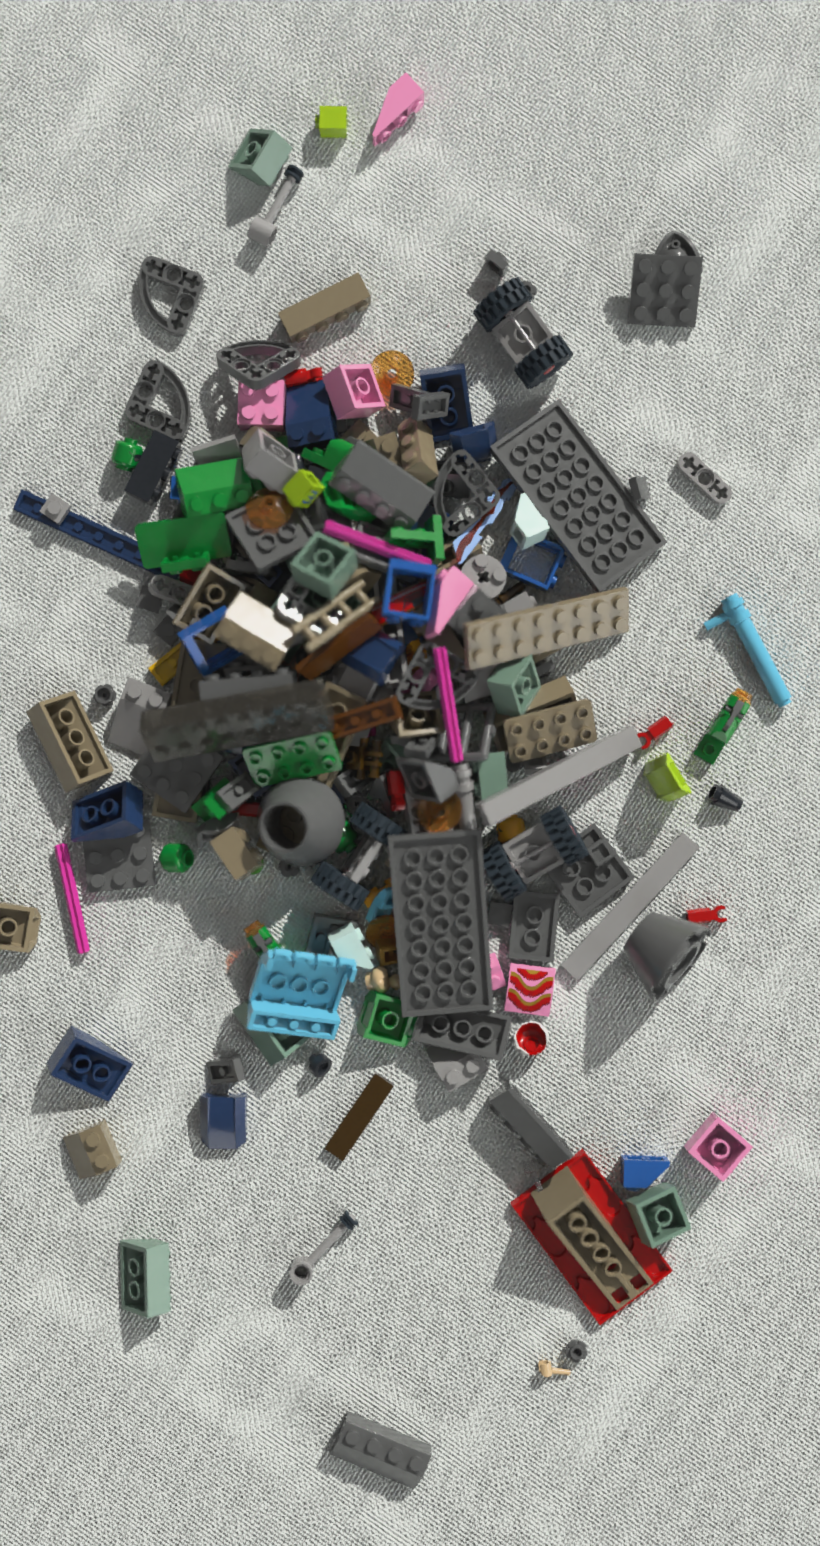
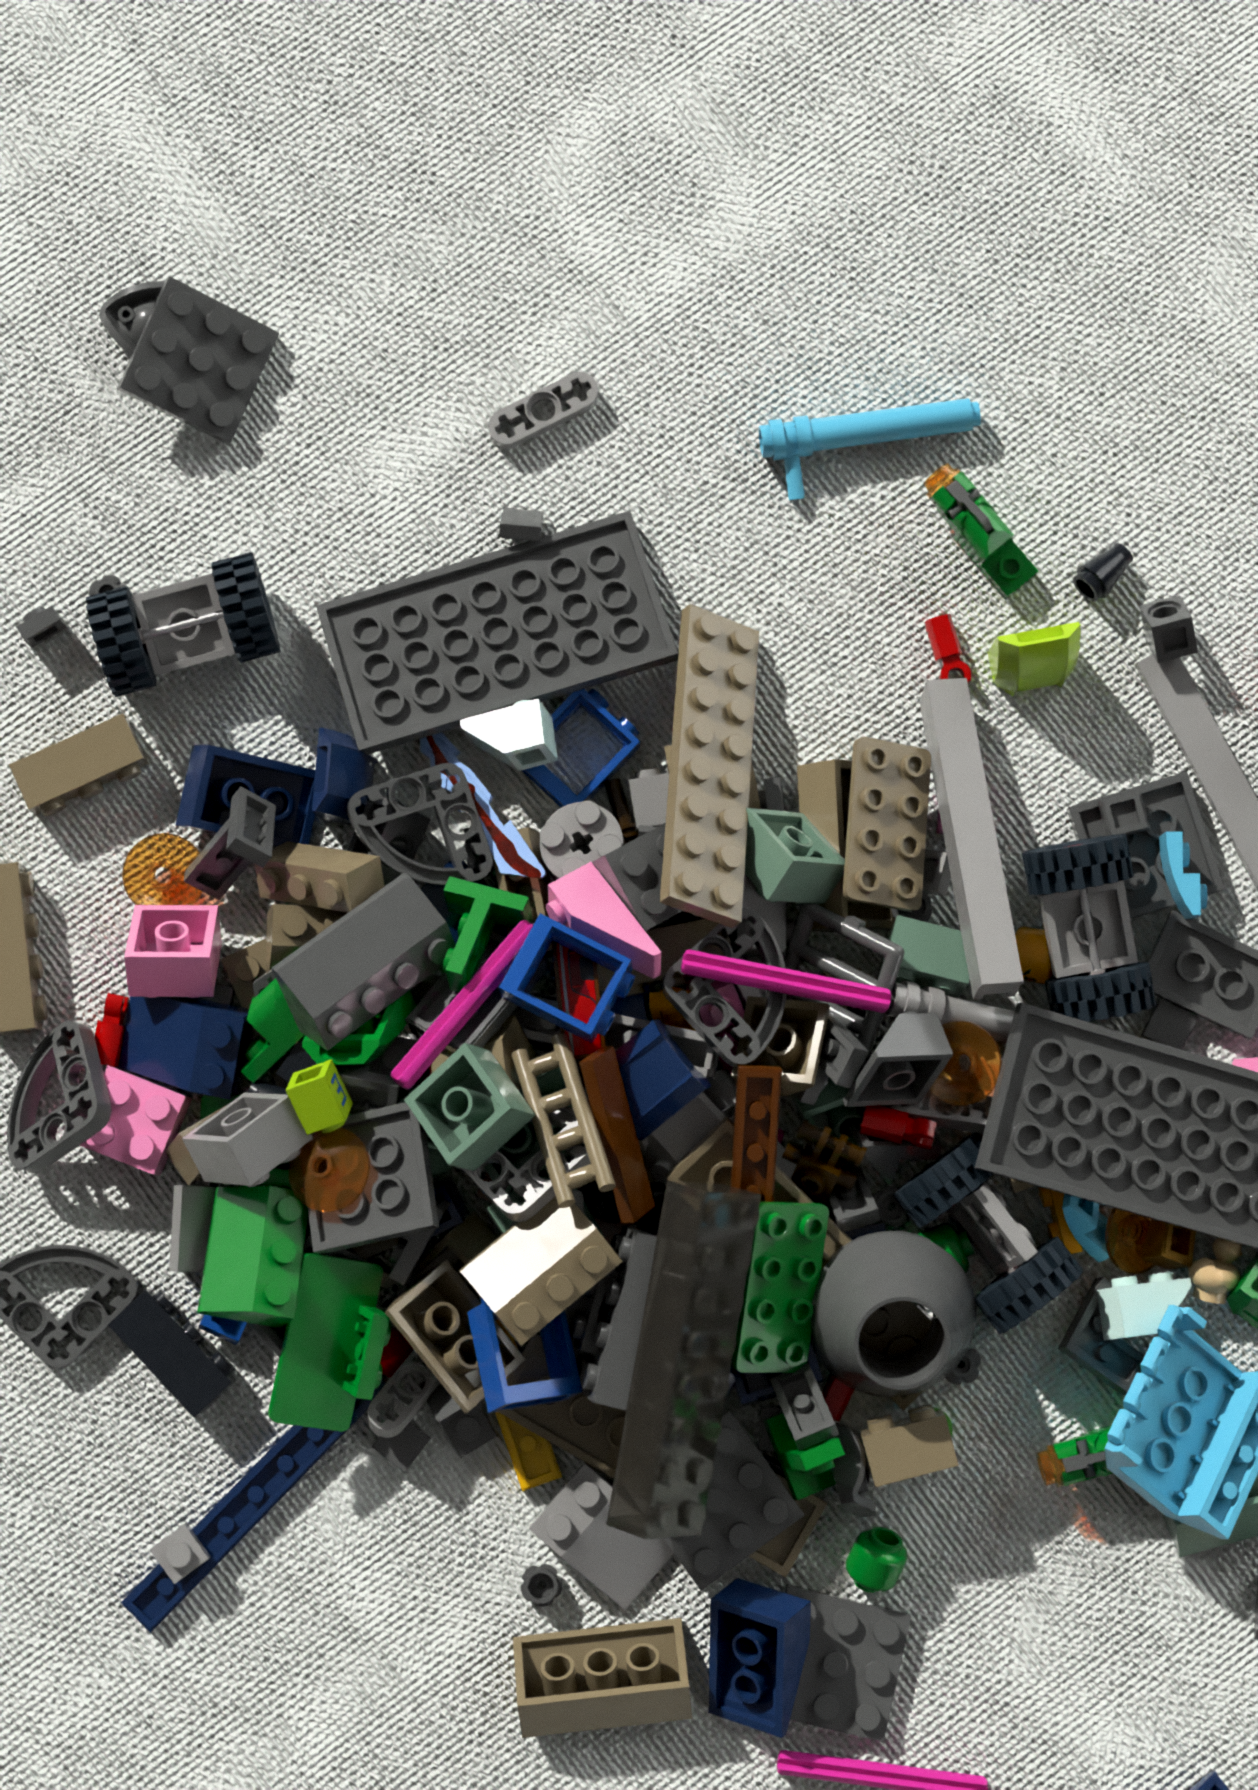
camera: 75 degrees left, 5 degrees down
(126, 454) = (131, 1391): green head -> none
(432, 309) = (79, 766): none -> dark tan brick
(573, 896) = (1184, 887): none -> medium azure slope
(706, 842) = (1168, 629): none -> dark grey brick

